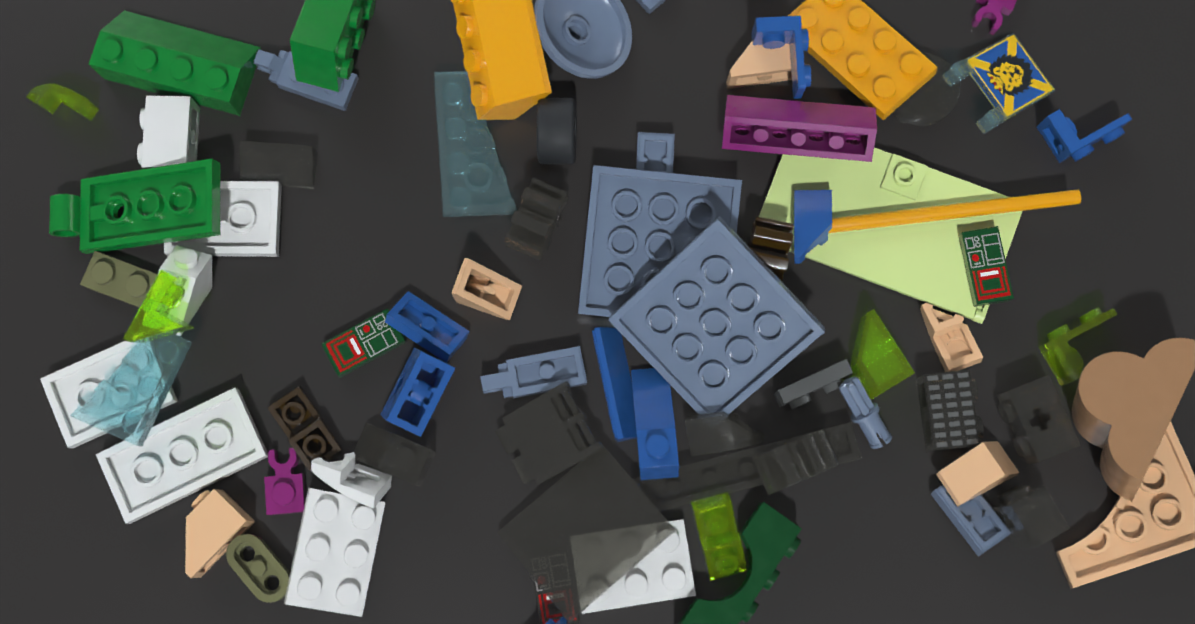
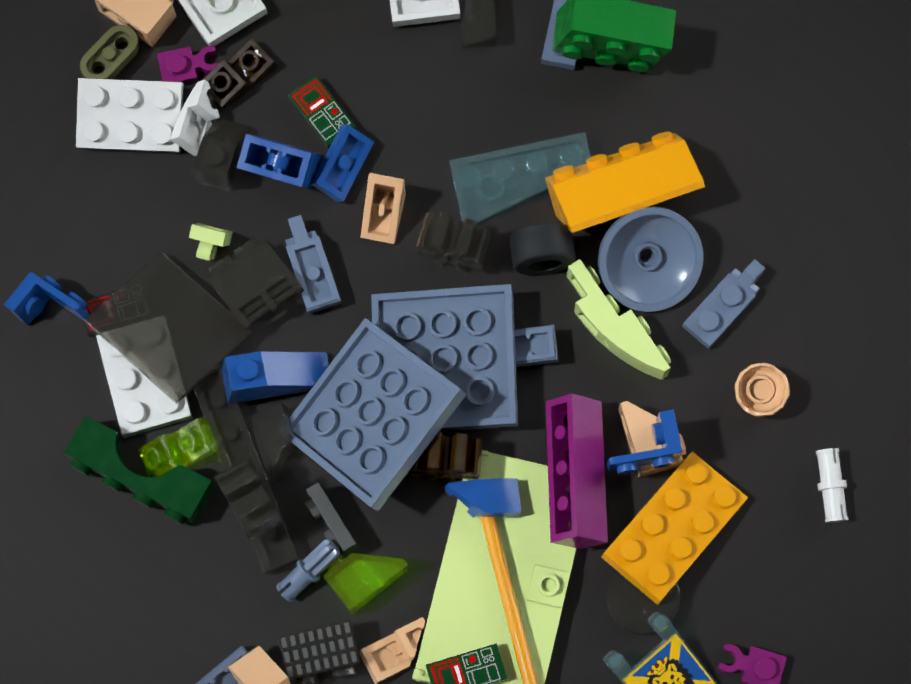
camera: 85 degrees right, 5 degrees down
(490, 477) = (209, 239): none -> yellowish green tile
(616, 381) = (314, 336): blue slope -> none
(654, 69) = (622, 335): none -> yellowish green slope

